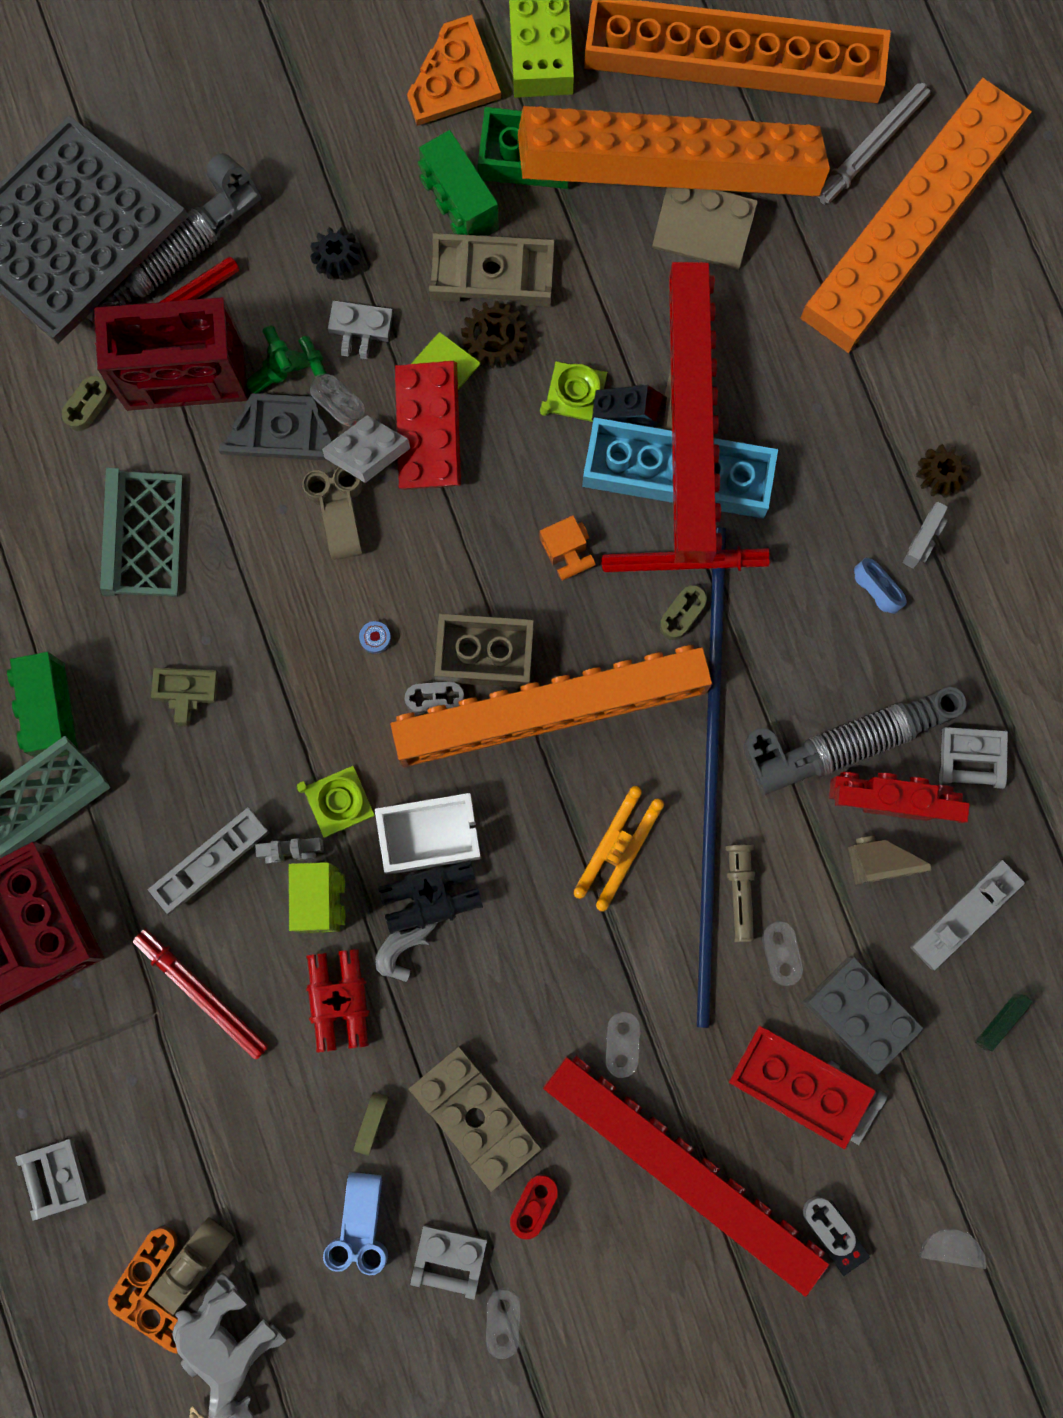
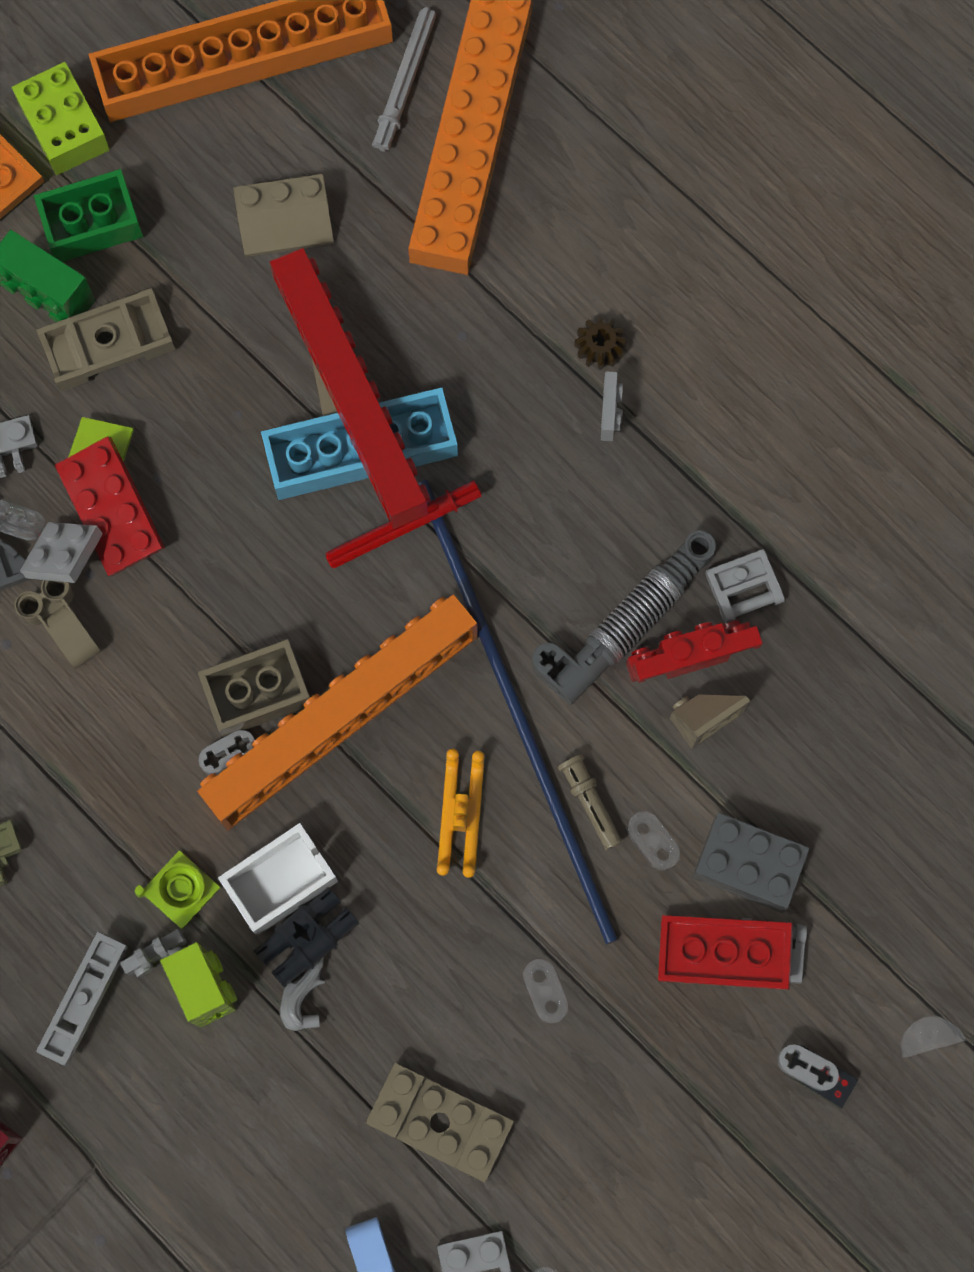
camera: 25 degrees left, 5 degrees down
(200, 993) = (129, 1128): red axle -> none
(350, 987) = (243, 1071): red pin -> none
(371, 1123) = (345, 1173): olive beam -> none
(375, 637) = (147, 722): medium blue tile -> none
(495, 321) = (138, 409): dark brown gear -> none
(534, 1206) = (531, 1179): red plate -> none
(564, 542) = (285, 557): orange brick -> none
(573, 391) = (232, 417): lime hat -> none
(631, 405) = (290, 405): black brick -> none
(671, 151) = (223, 163): orange brick -> none
(686, 1176) = (657, 1083): red brick -> none
(688, 616) = (429, 575): olive beam -> none
(879, 585) = (592, 470): medium blue plate -> none
(967, 915) = (803, 731): light grey hinge -> none
(1003, 1022) = (879, 810): clear green tile -> none

